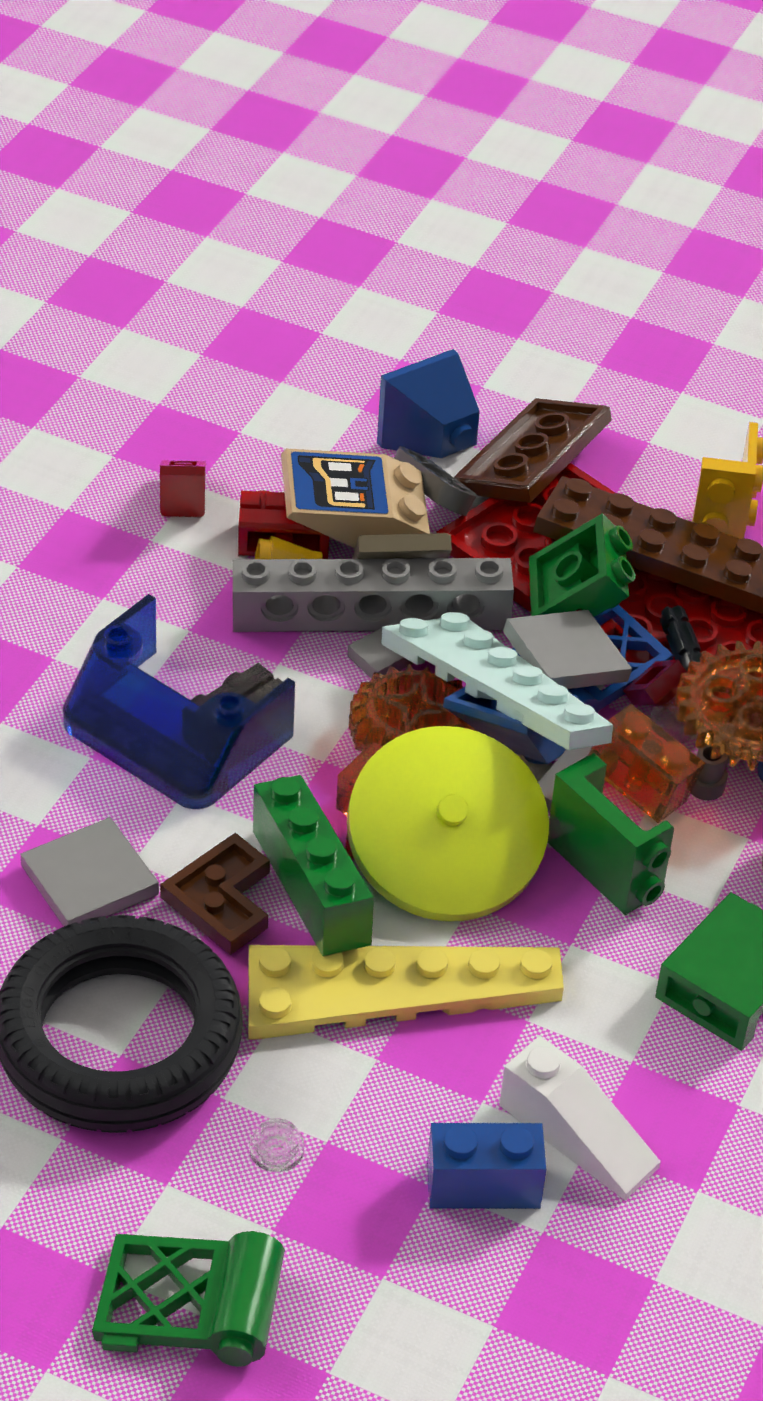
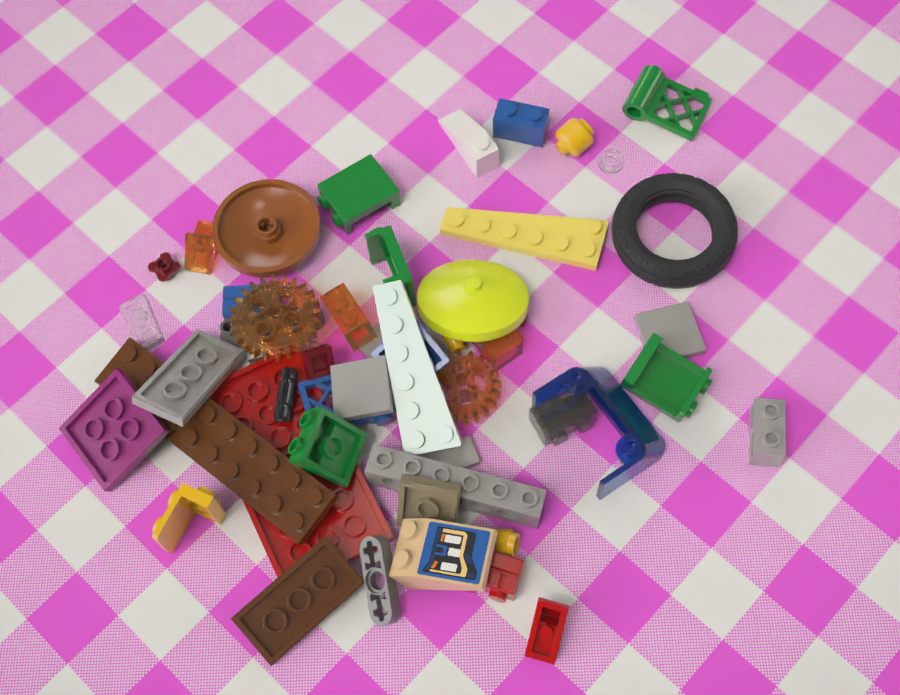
camera: 155 degrees left, 20 degrees up
(80, 790) = (666, 380): none -> green panel
(212, 889) = (609, 300): reddish brown plate -> none
(313, 865) = (554, 290): green brick -> none
(366, 1163) = (574, 137): none -> yellow head
(428, 407) = (355, 649): blue slope -> none

